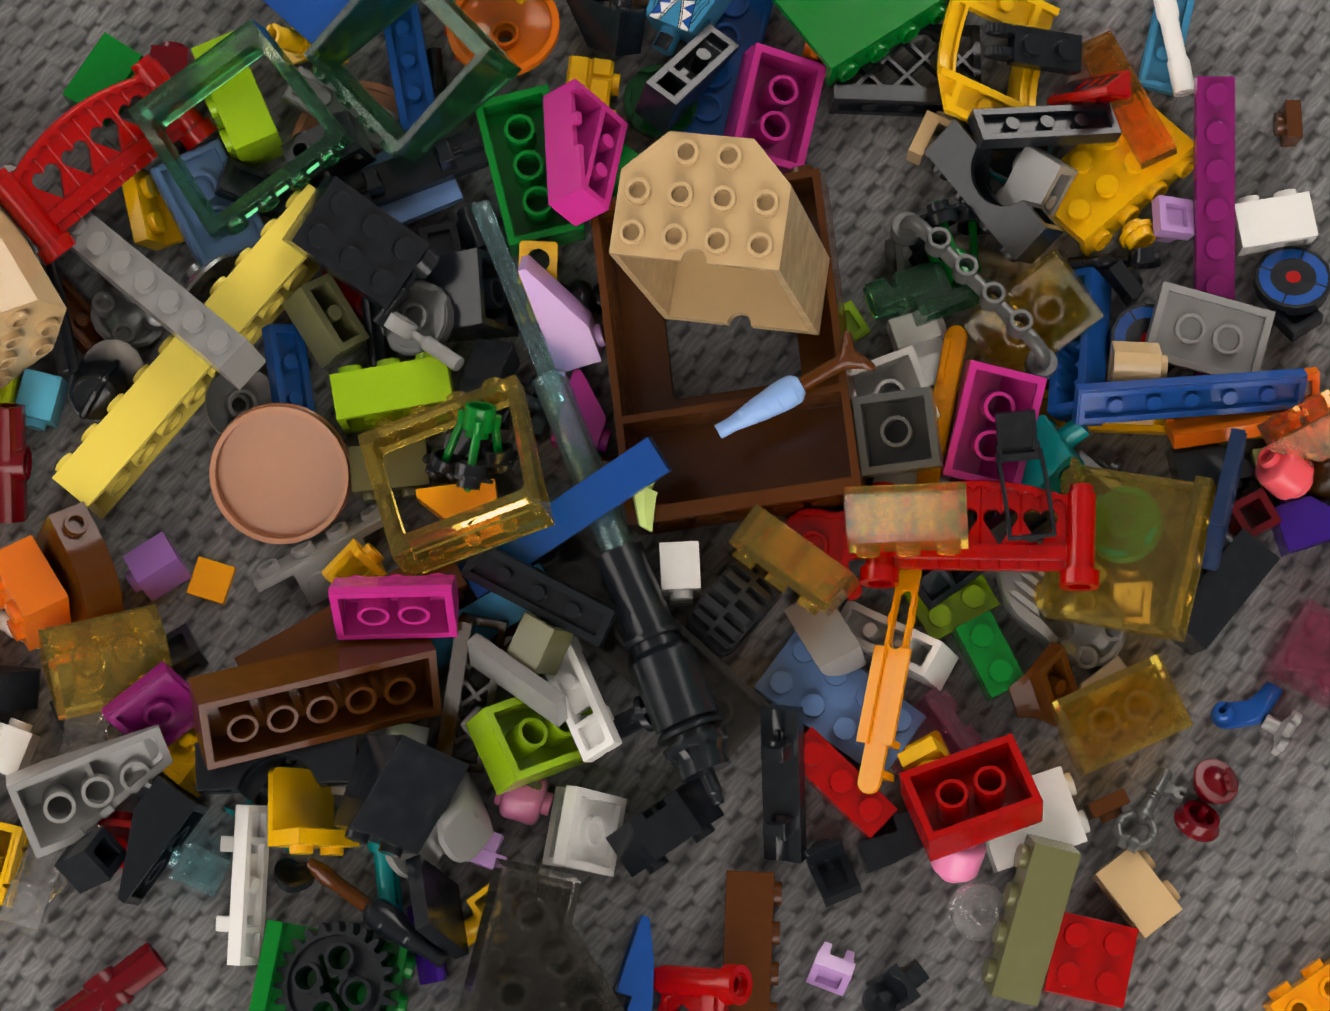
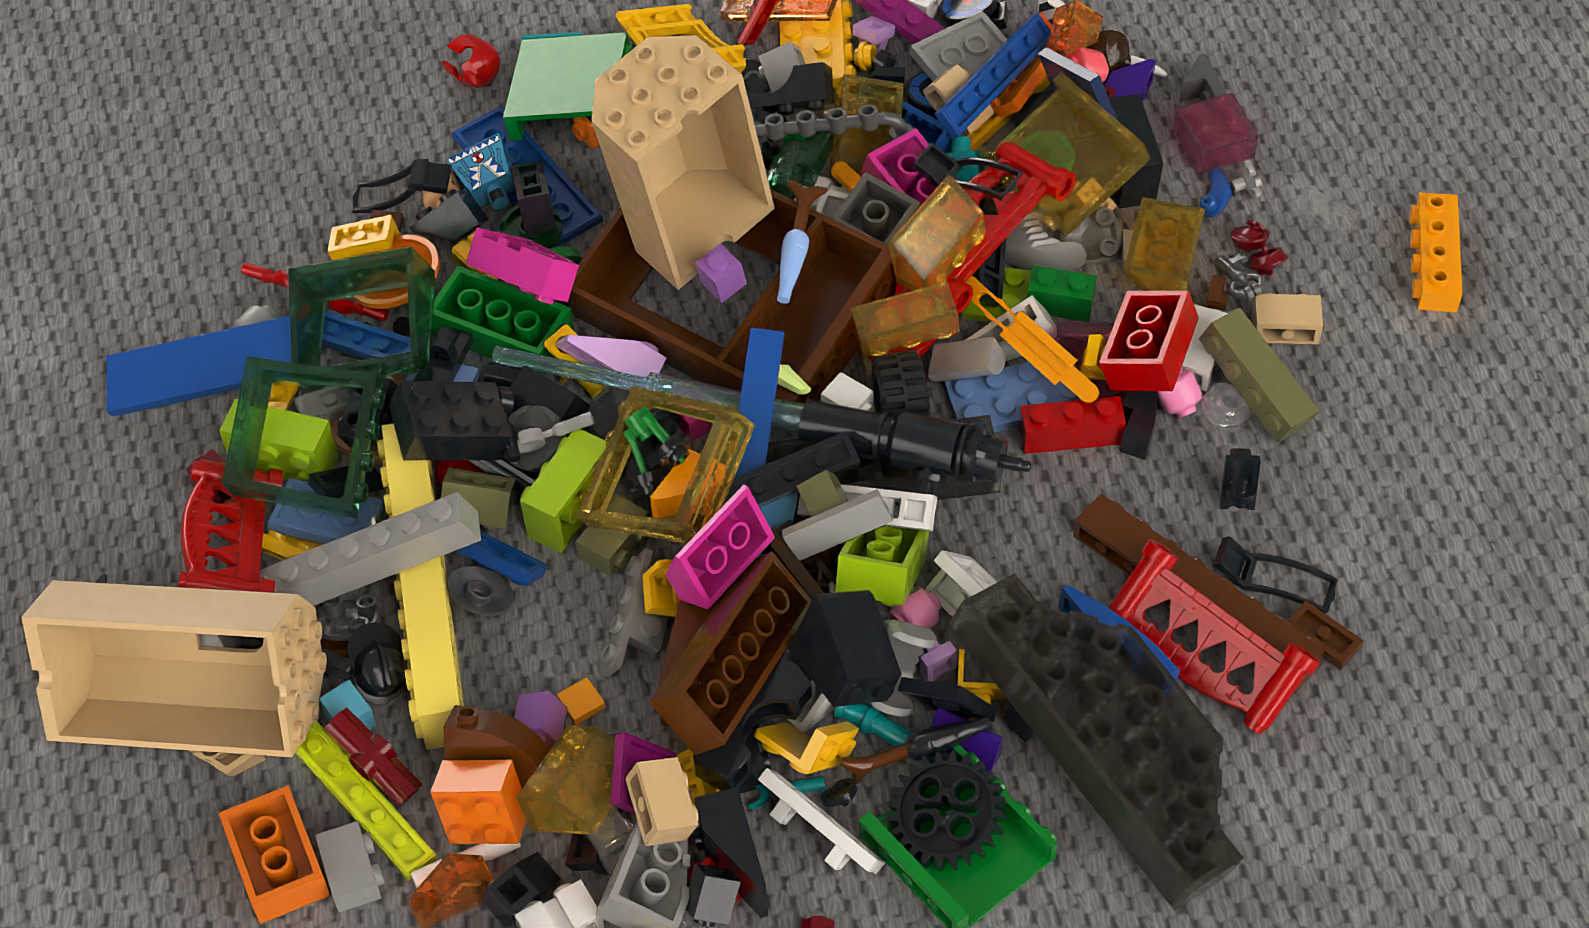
camera: 50 degrees left, 25 degrees down
(105, 66) = (167, 509): green brick -> none
(127, 756) = (662, 801): none -> tan brick
(198, 867) = (779, 847): clear light blue bracket -> none
(280, 473) = (552, 597): nougat brick -> none
(663, 827) = (1013, 539): black brick -> none
(700, 350) = (721, 273): none -> medium lavender brick
(776, 103) = (582, 169): dark pink brick -> none
(783, 782) = (1045, 447): black hinge -> none
(831, 971) = (1196, 515): lavender tile -> none
(832, 871) = (1128, 471): black bracket -> none
(1036, 48) = (702, 23): black hinge -> none
(1043, 683) = (1107, 272): reddish brown slope -> none
(1044, 125) = (759, 39): black plate -> none
(1091, 960) = (1319, 364): red brick -> none

